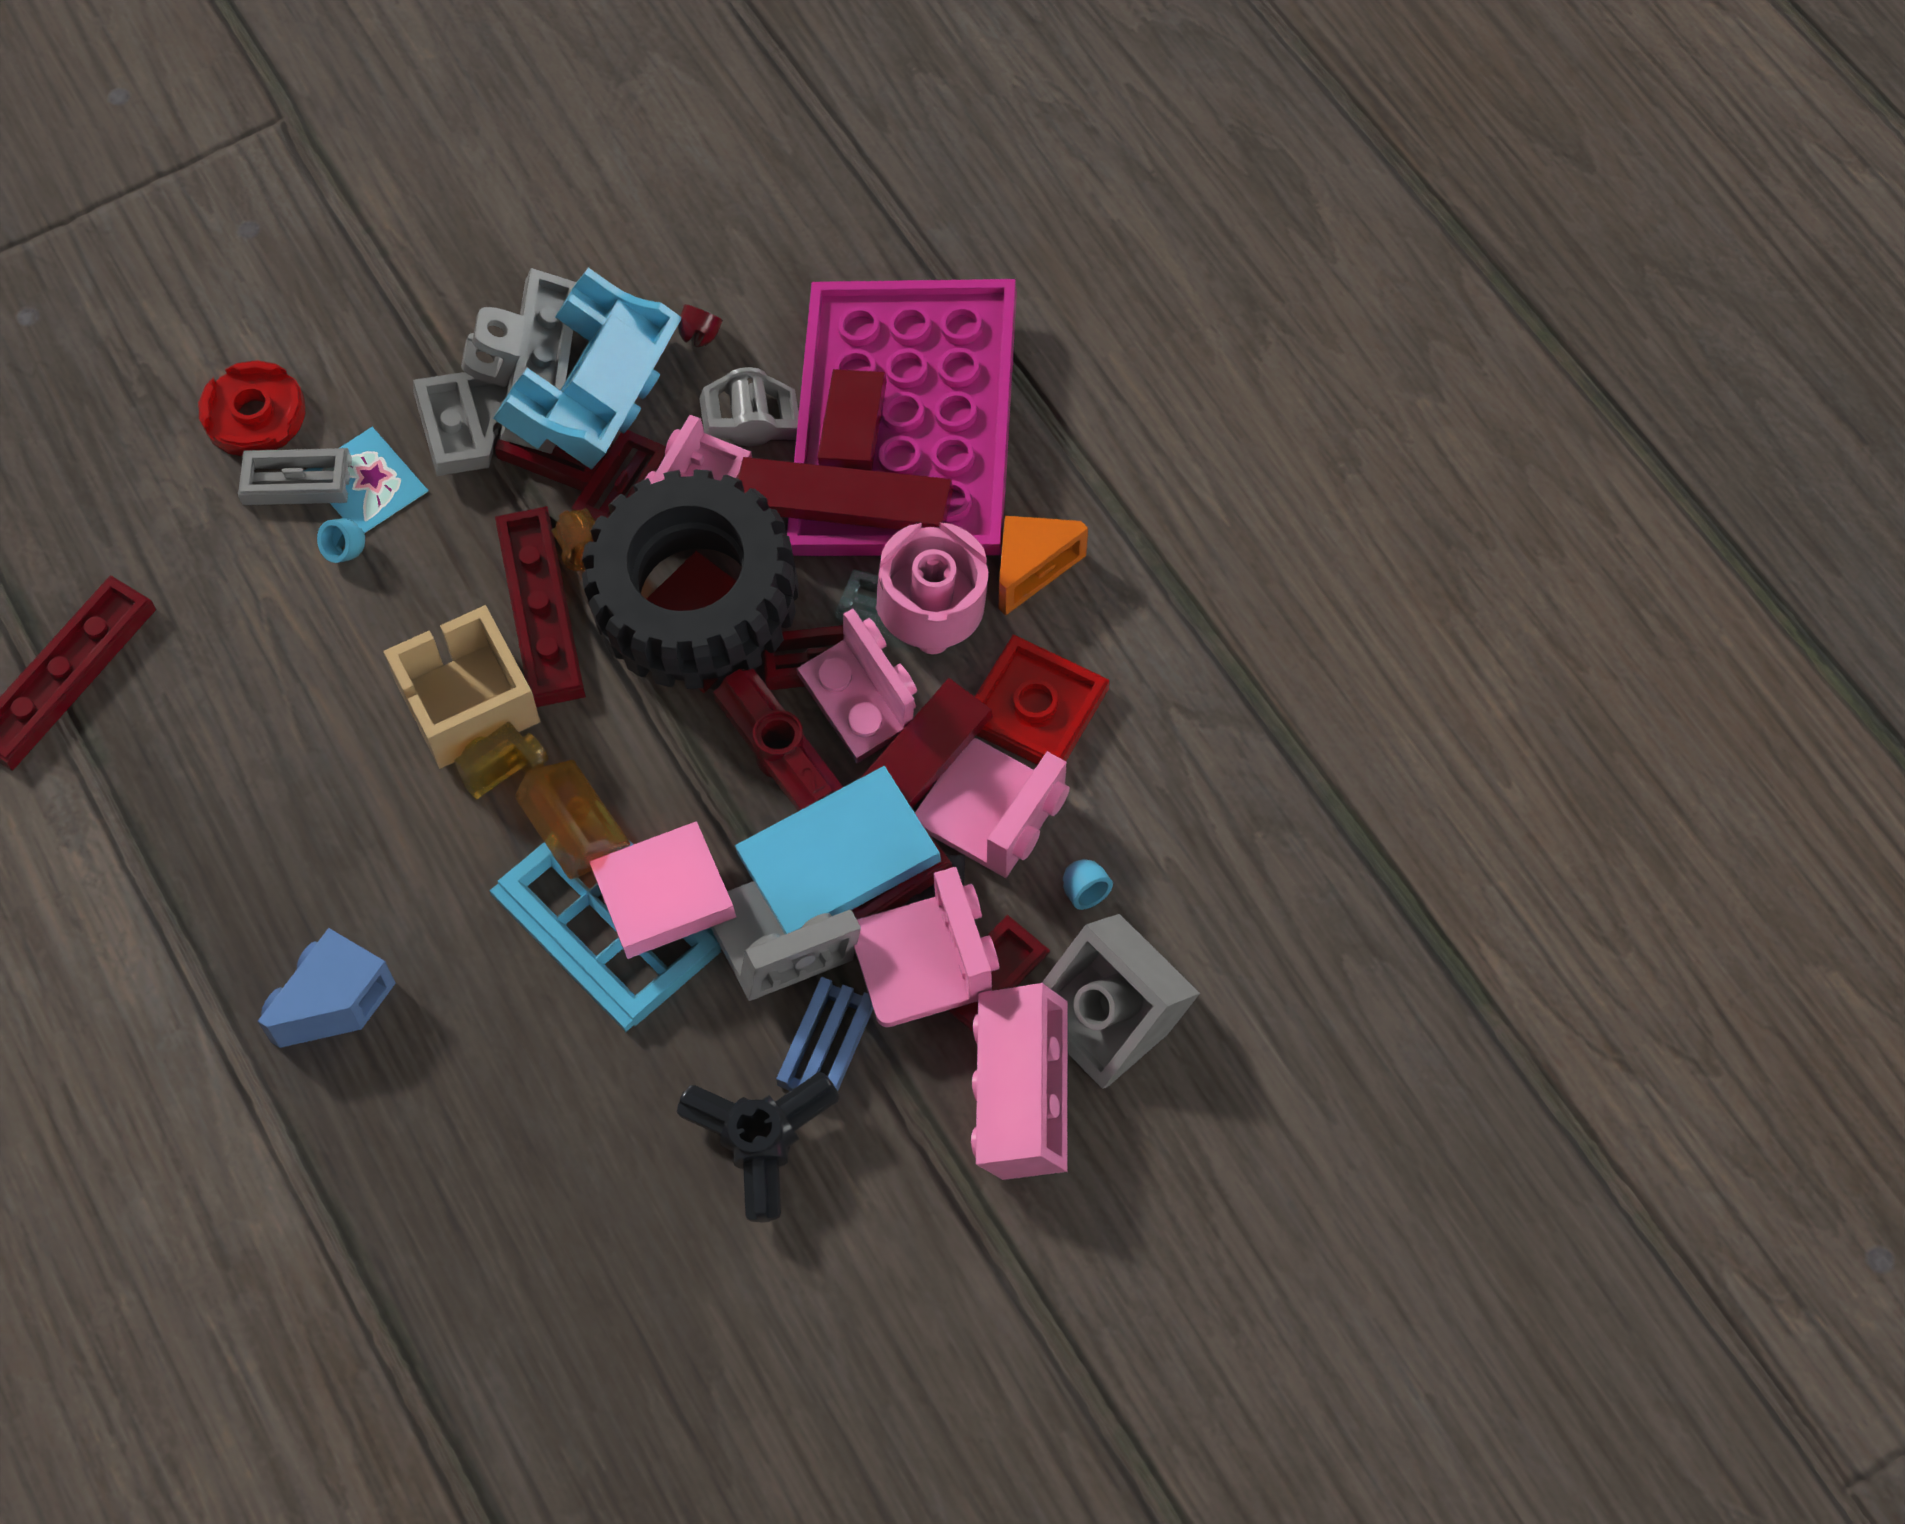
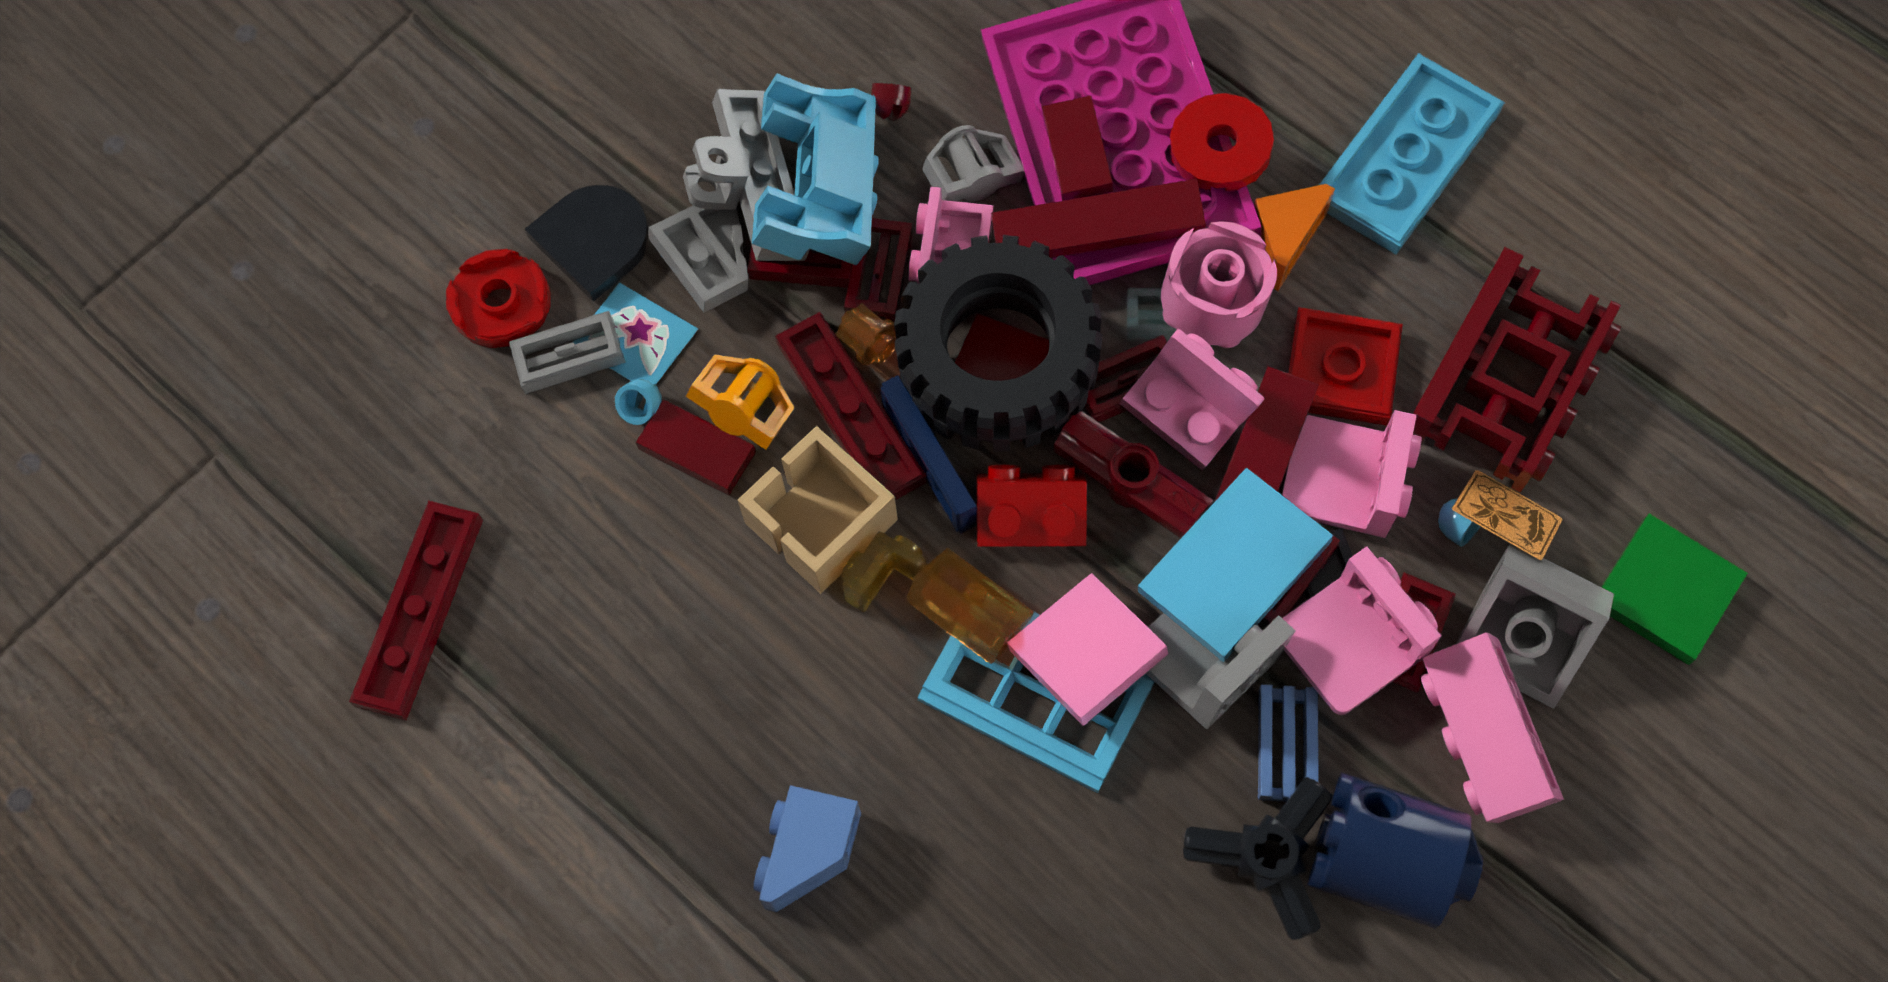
camera: 15 degrees left, 5 degrees up
(363, 375) = (593, 236): none -> black tile
(378, 598) = (696, 447): none -> dark red tile
(435, 565) = (730, 410): none -> light orange piece
(591, 672) = (929, 455): none -> dark blue tile
(670, 747) = (1031, 507): none -> red bracket
(872, 1163) = (1395, 852): none -> dark blue cylinder
(987, 426) = (1226, 116): none -> red tile
(1130, 888) = (1508, 514): none -> clear orange sticker
(1169, 722) = (1476, 351): none -> dark red fence
(1191, 518) = (1408, 152): none -> medium azure tile
(1267, 1010) = (1671, 588): none -> green tile

